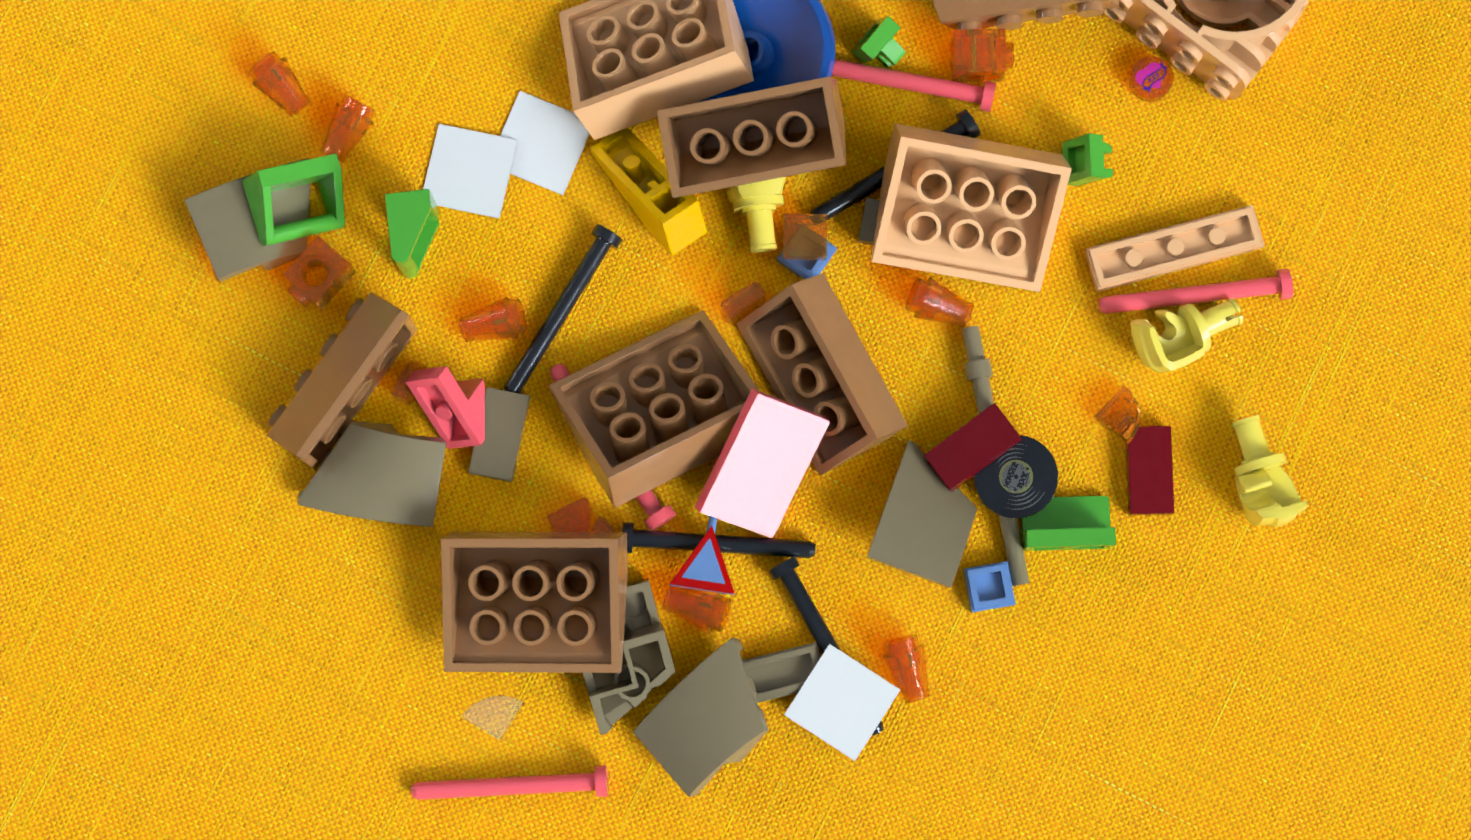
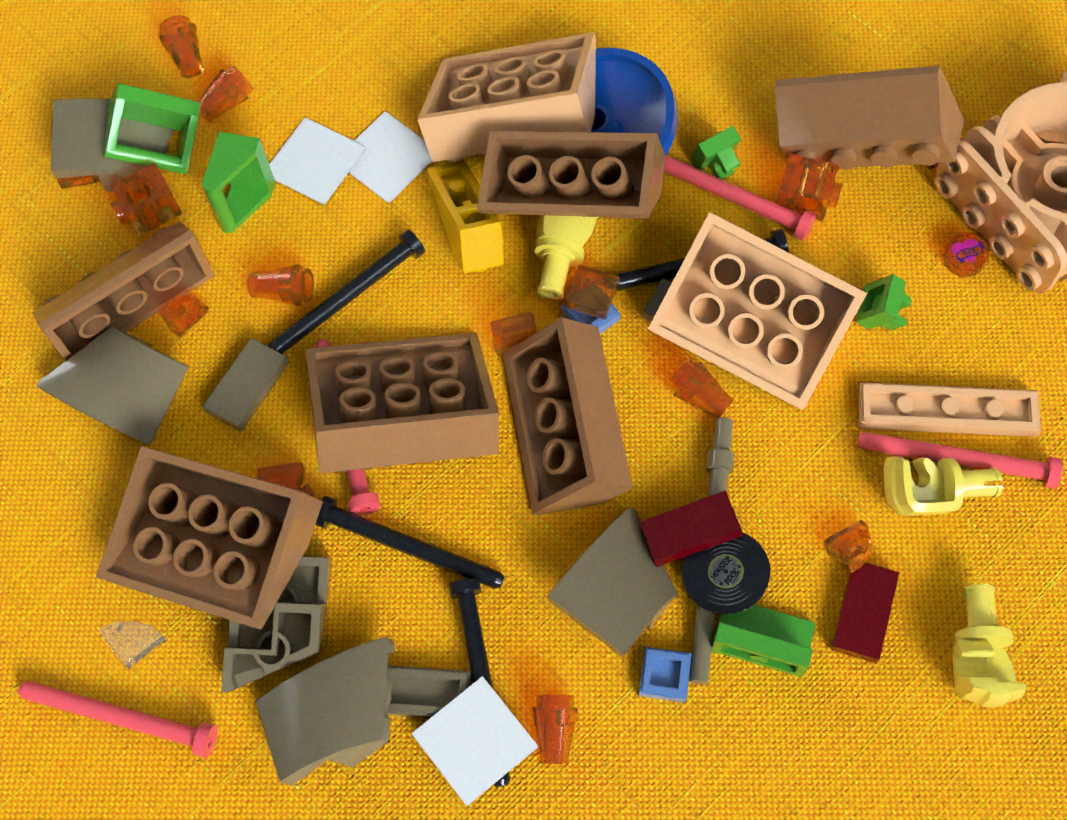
camera: 25 degrees right, 15 degrees down
(451, 405) = (208, 346): coral slope -> none
(699, 607) = (370, 601): clear orange cone -> none
(705, 566) = (387, 559): piece -> none
(762, 463) = (475, 476): tile -> none

